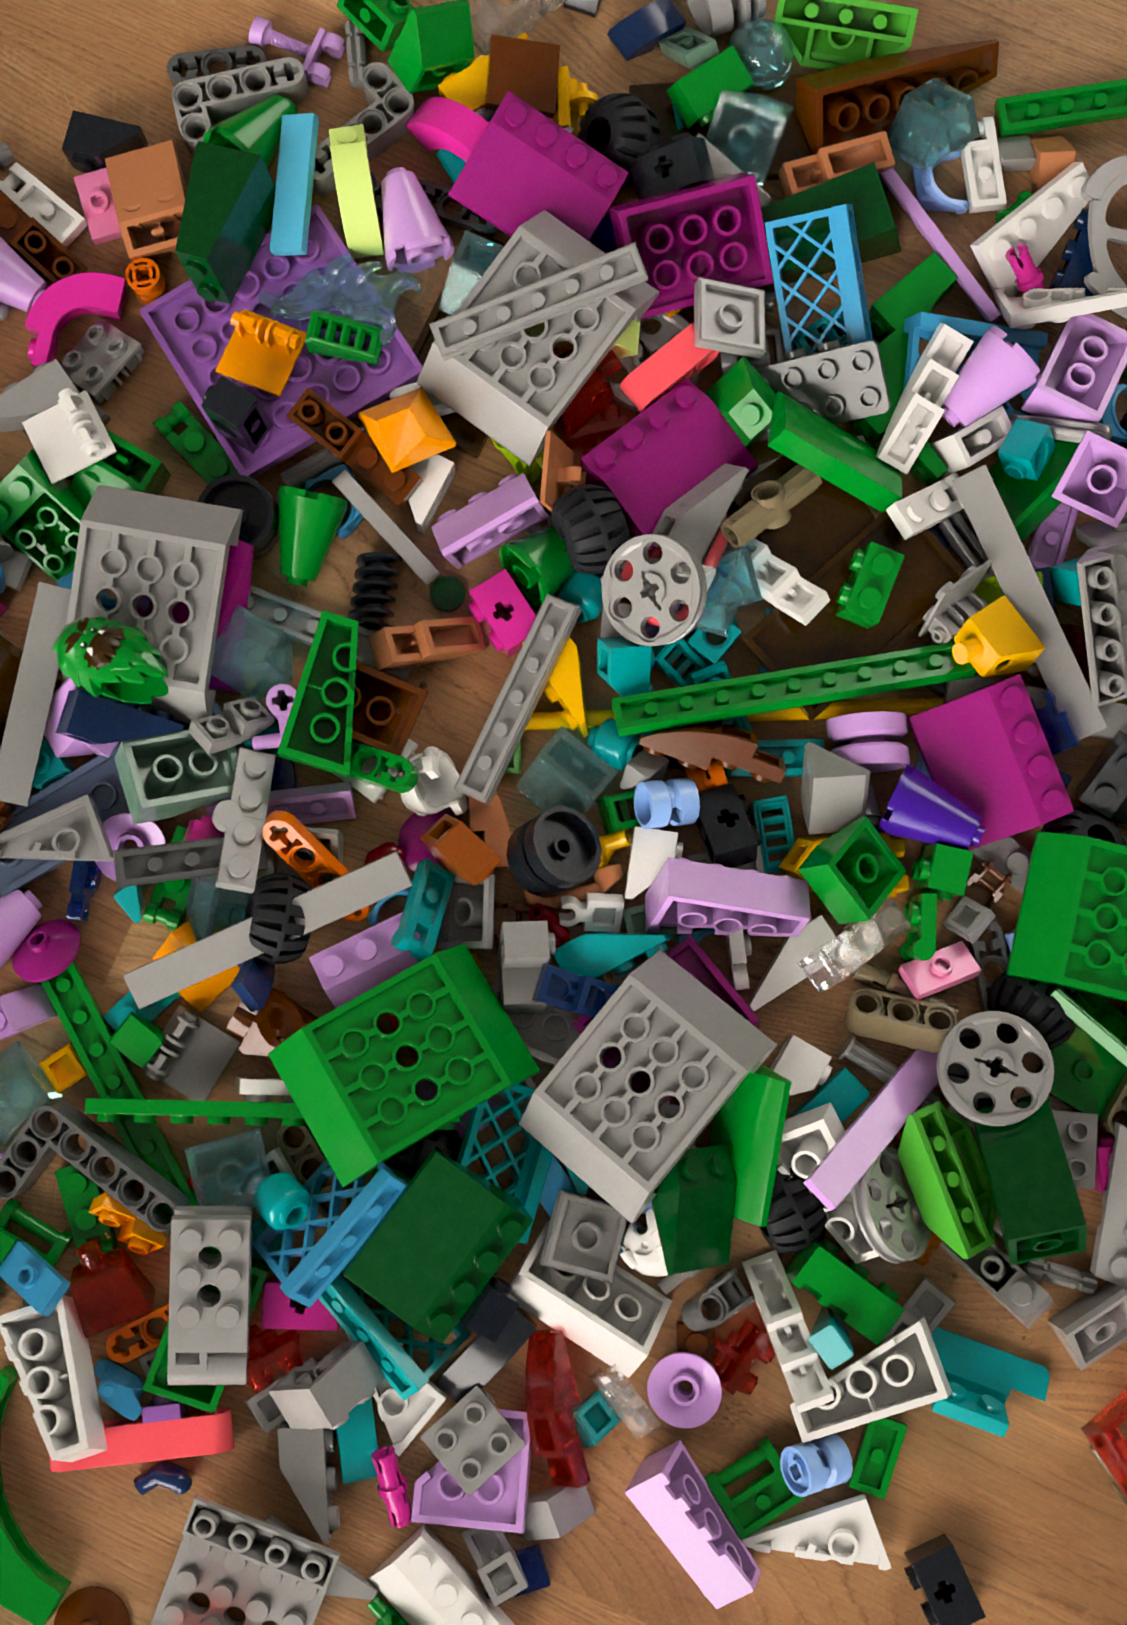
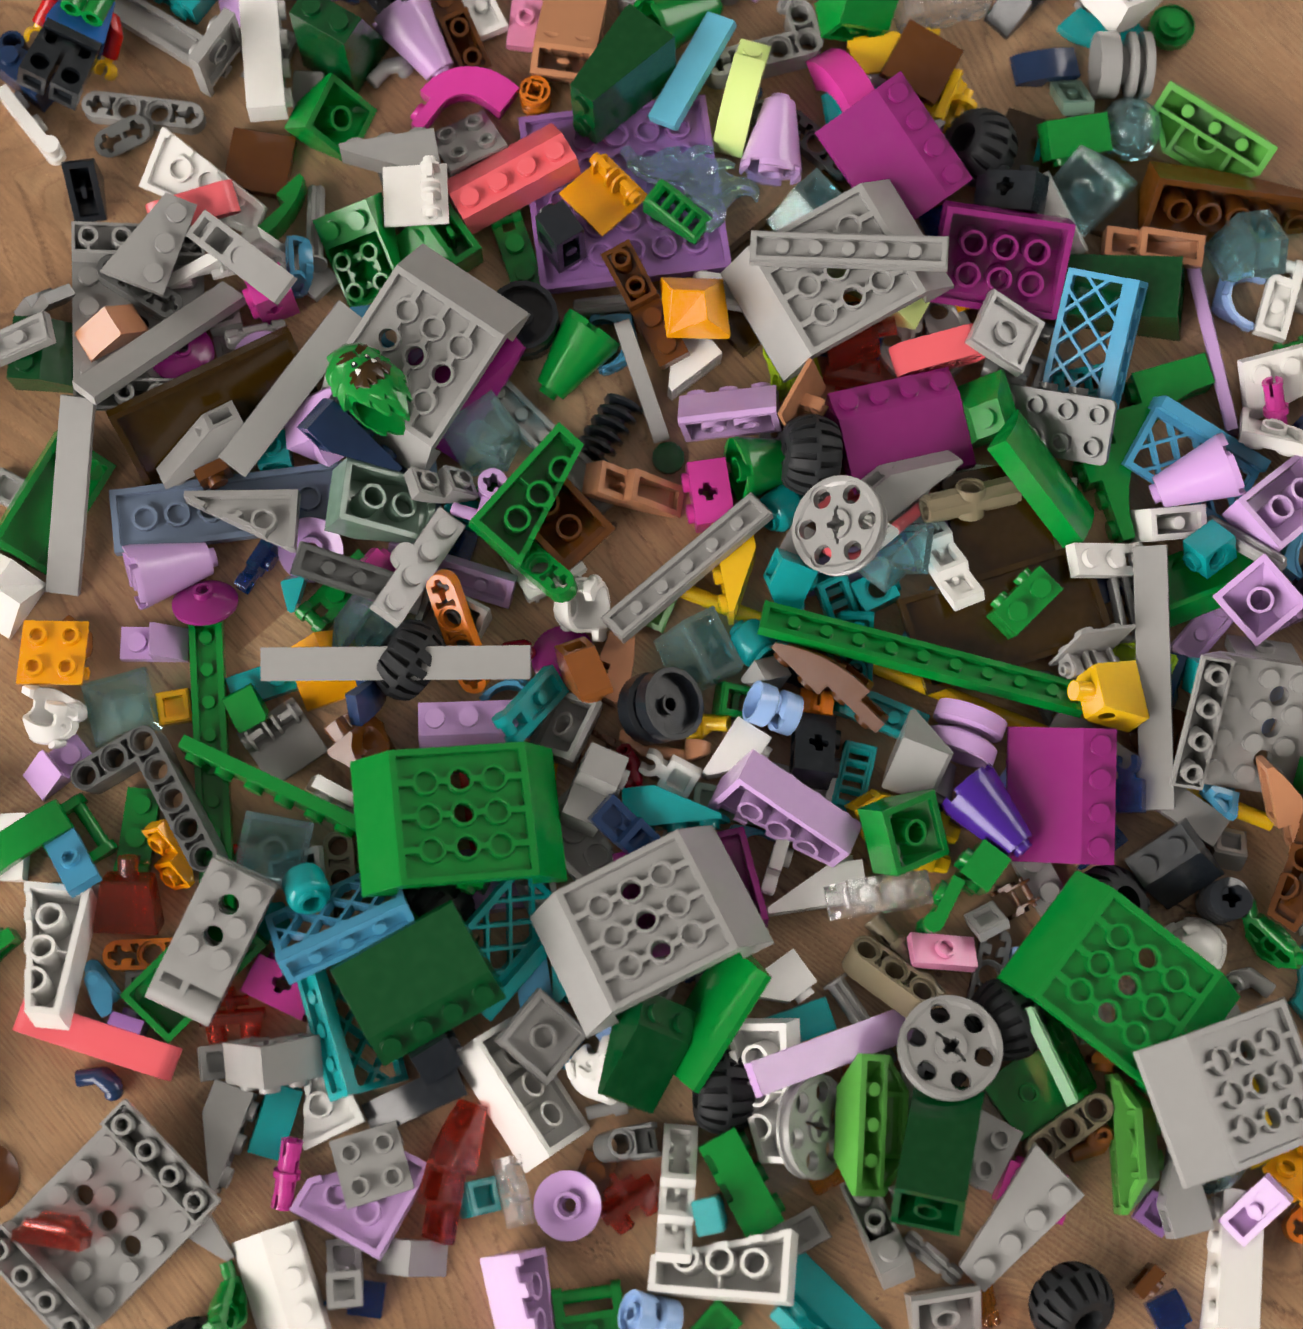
camera: 20 degrees right, 5 degrees down
(161, 375) = (513, 178): none -> coral slope
(923, 397) = (1137, 468): white slope -> none

